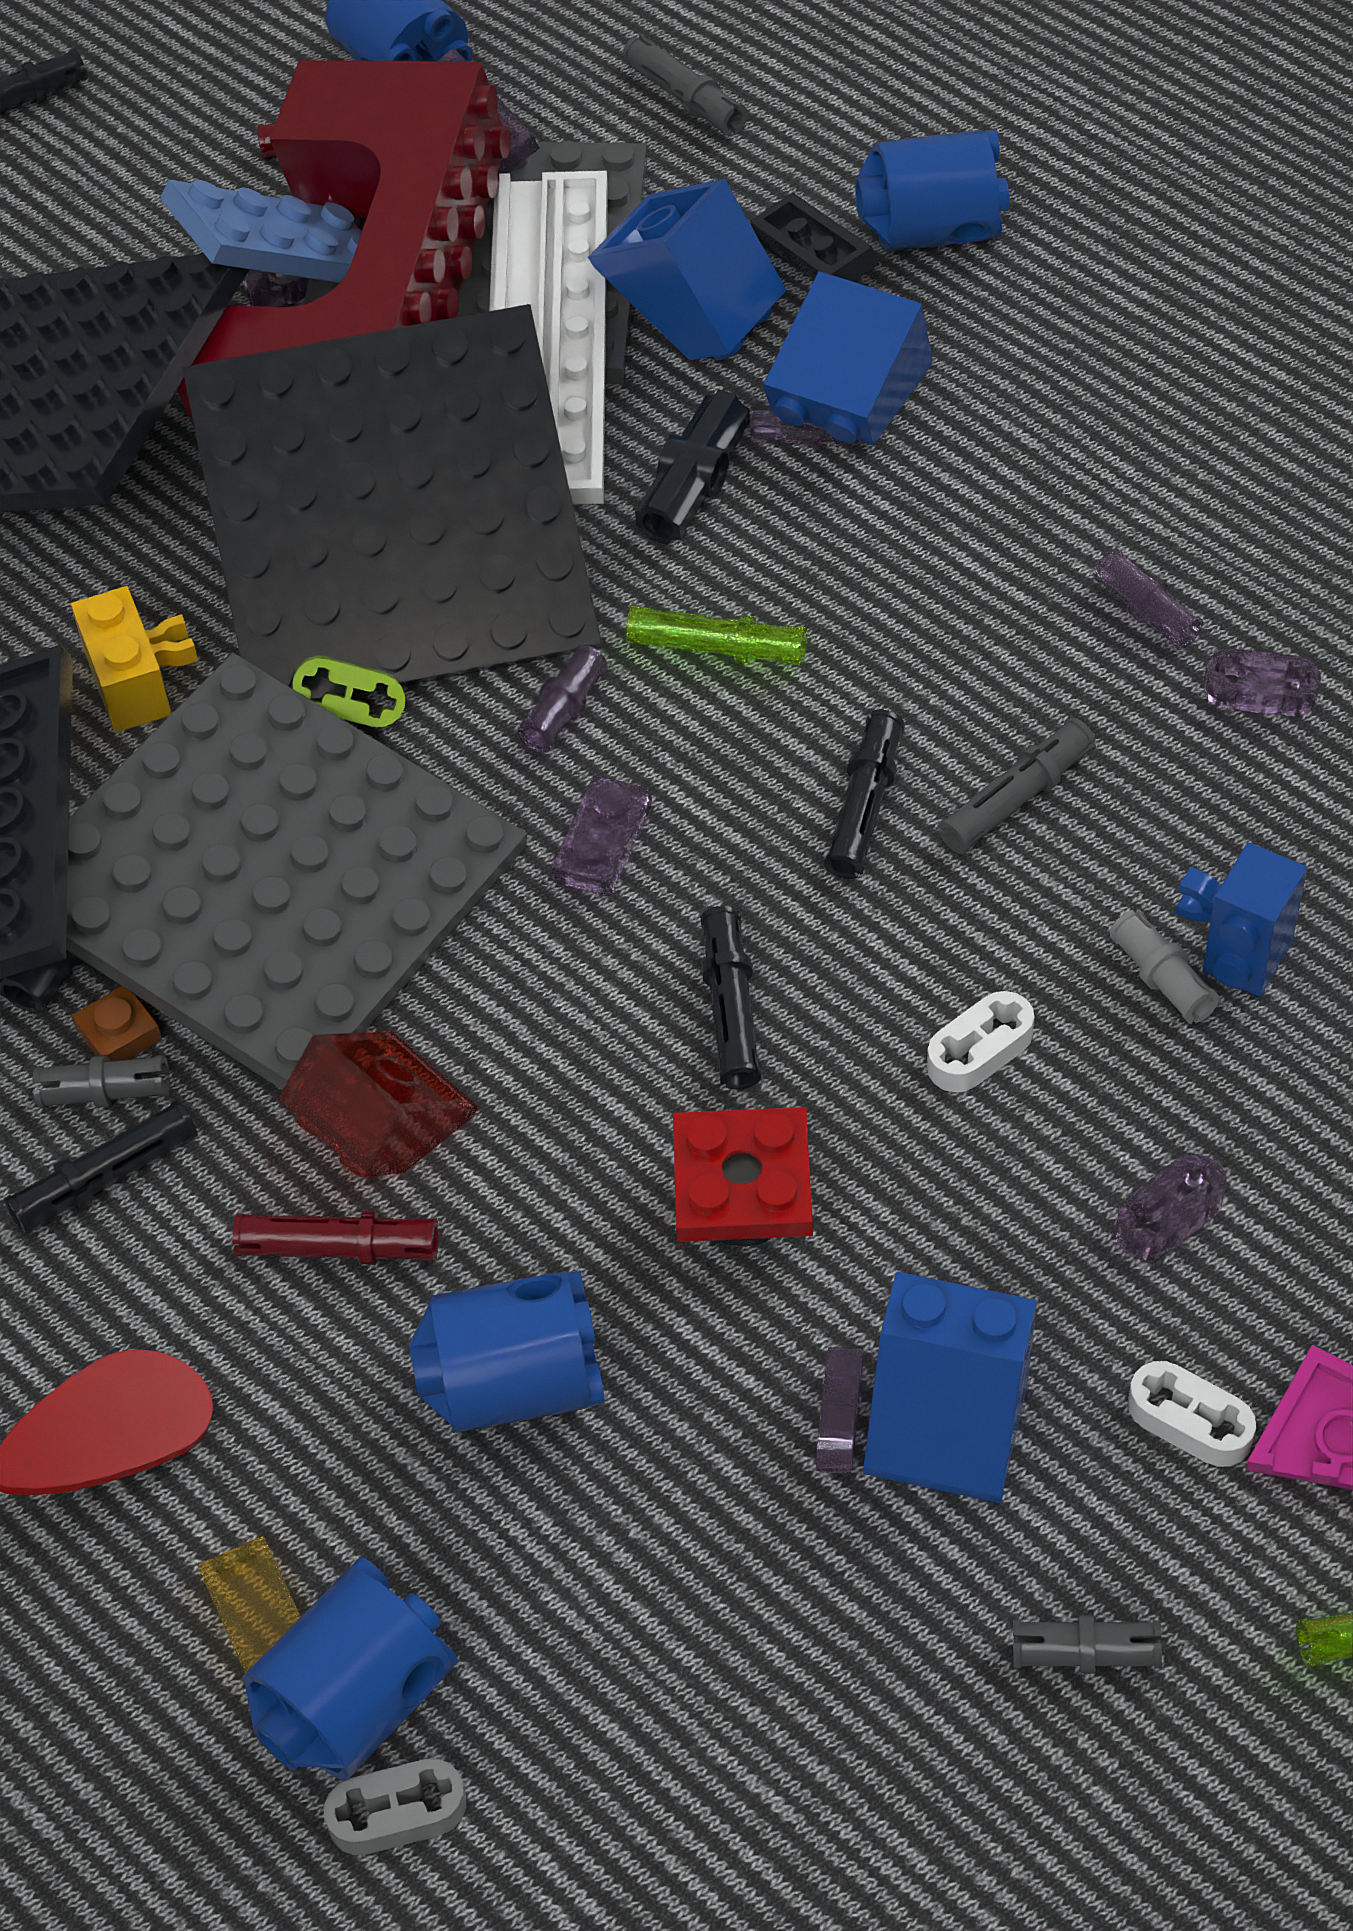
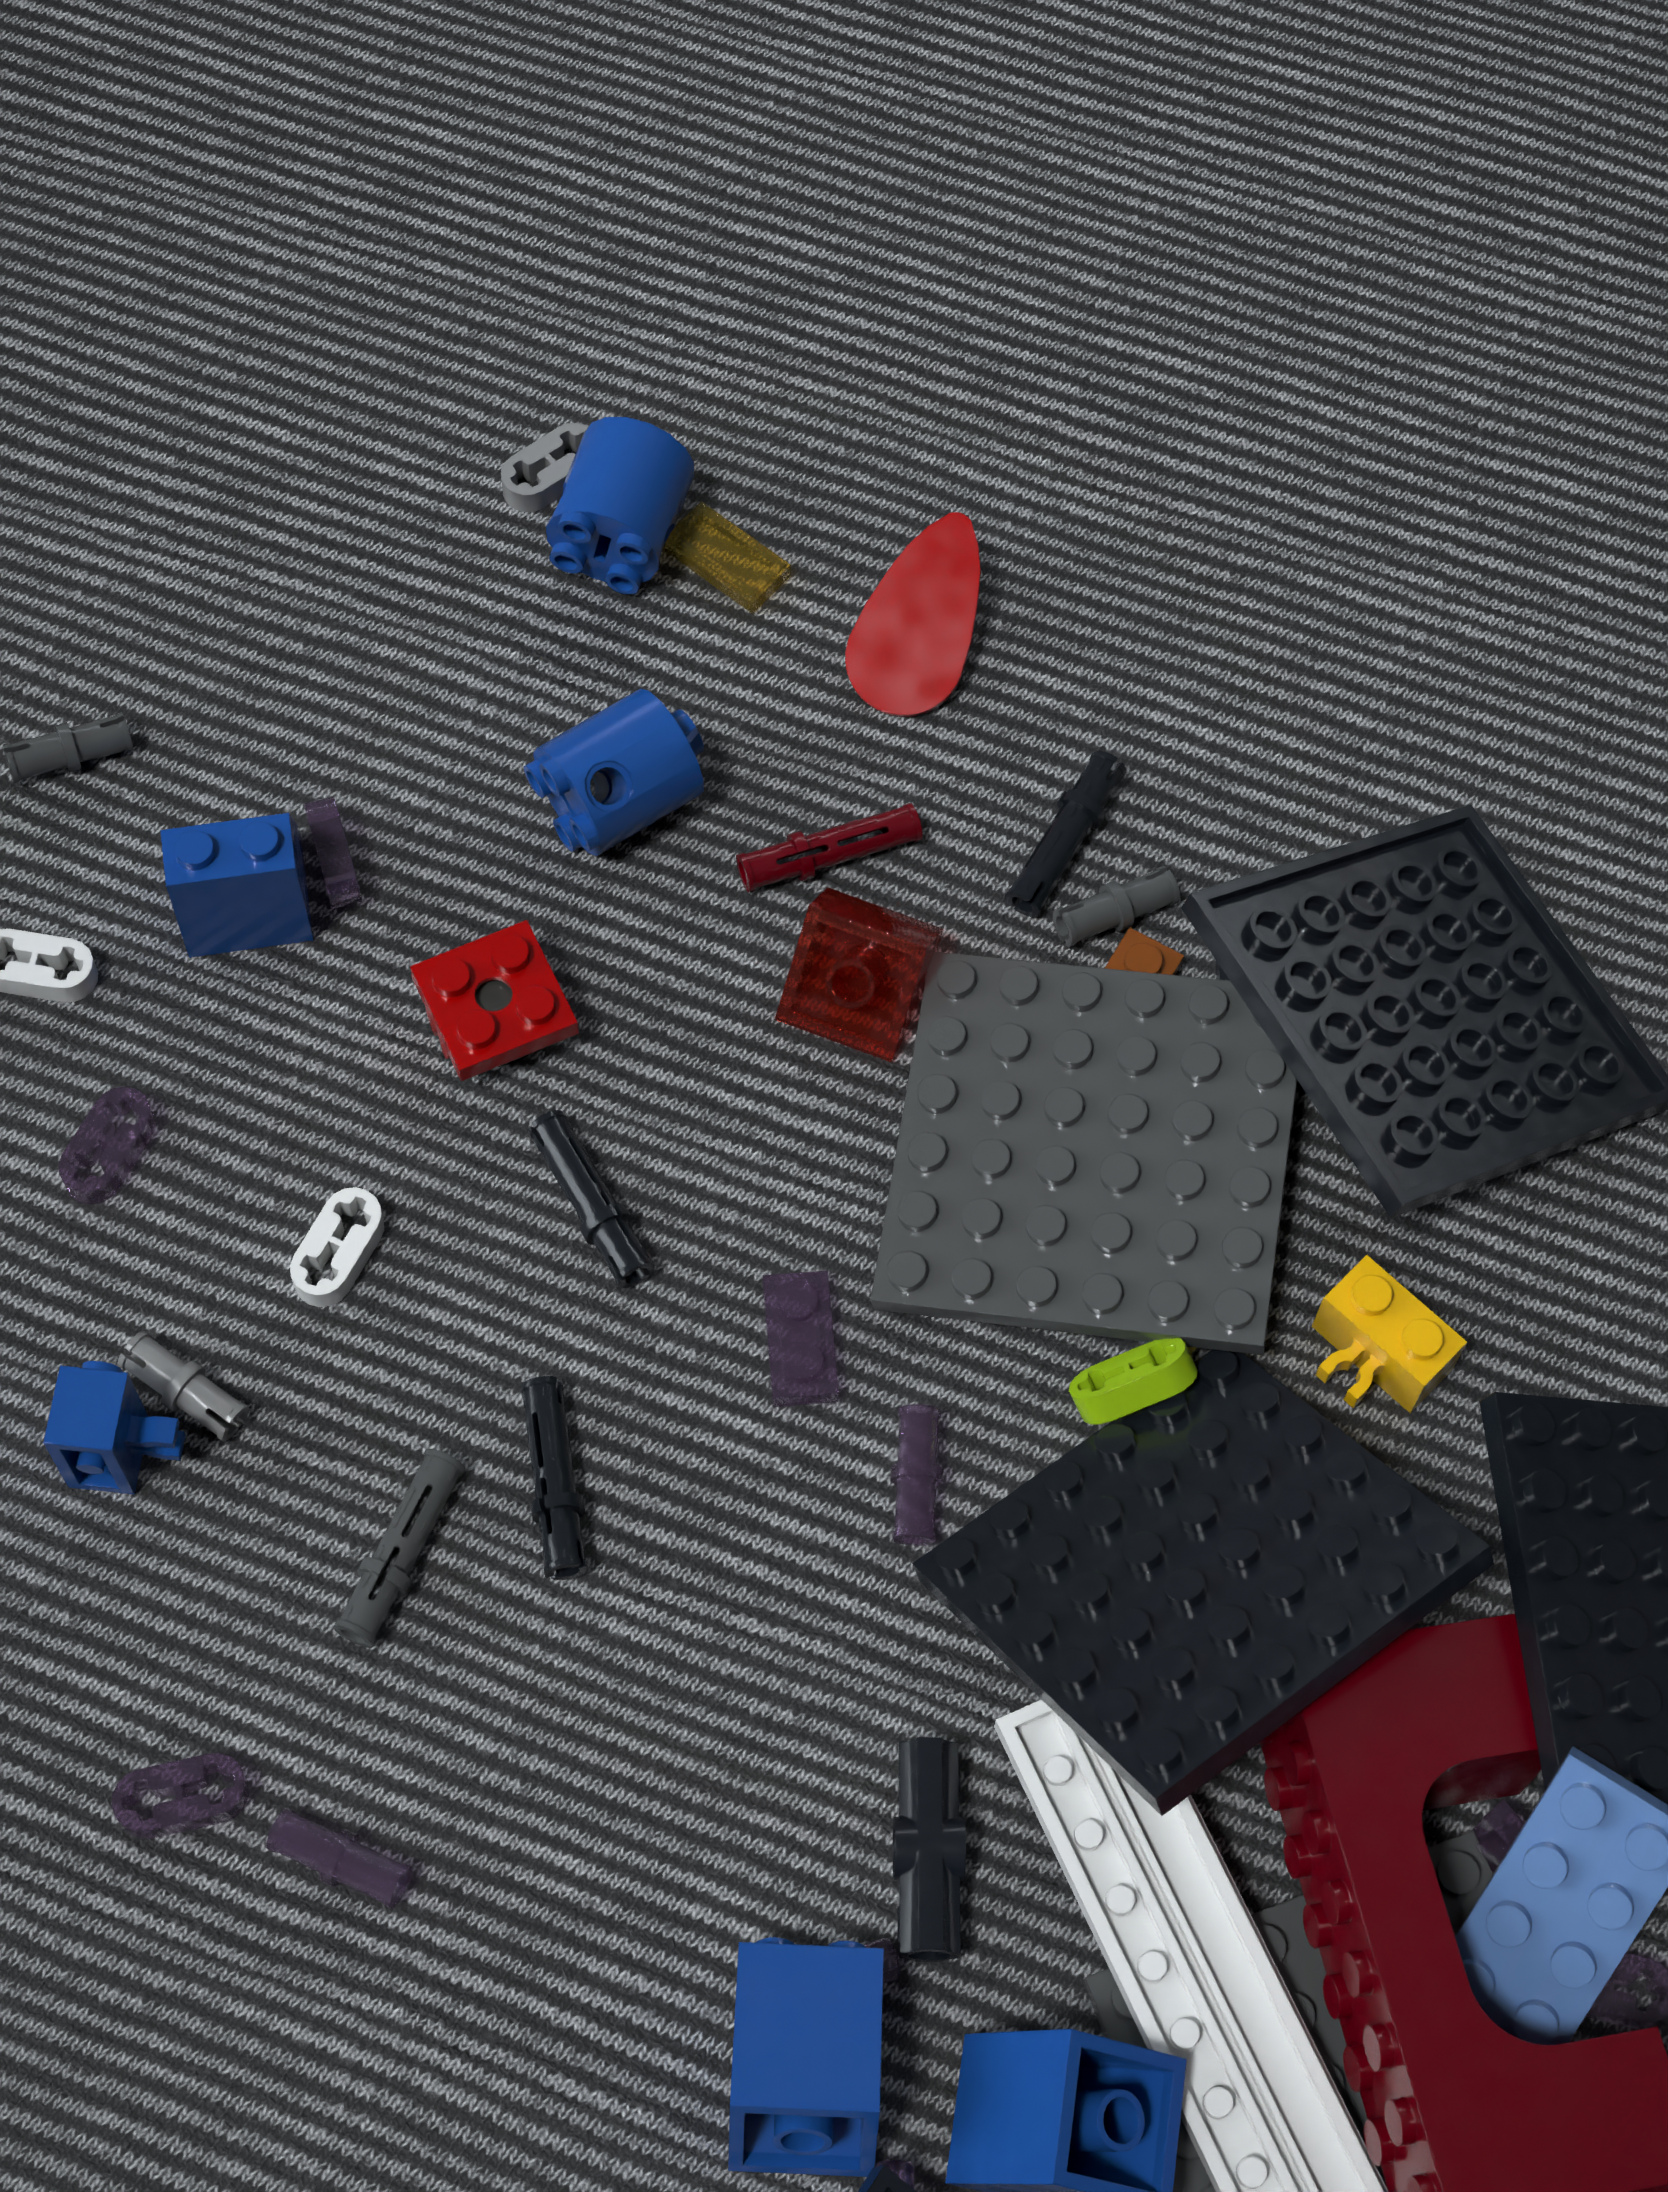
camera: 150 degrees right, 10 degrees up
(729, 637) = (794, 1620): clear neon green pin -> none

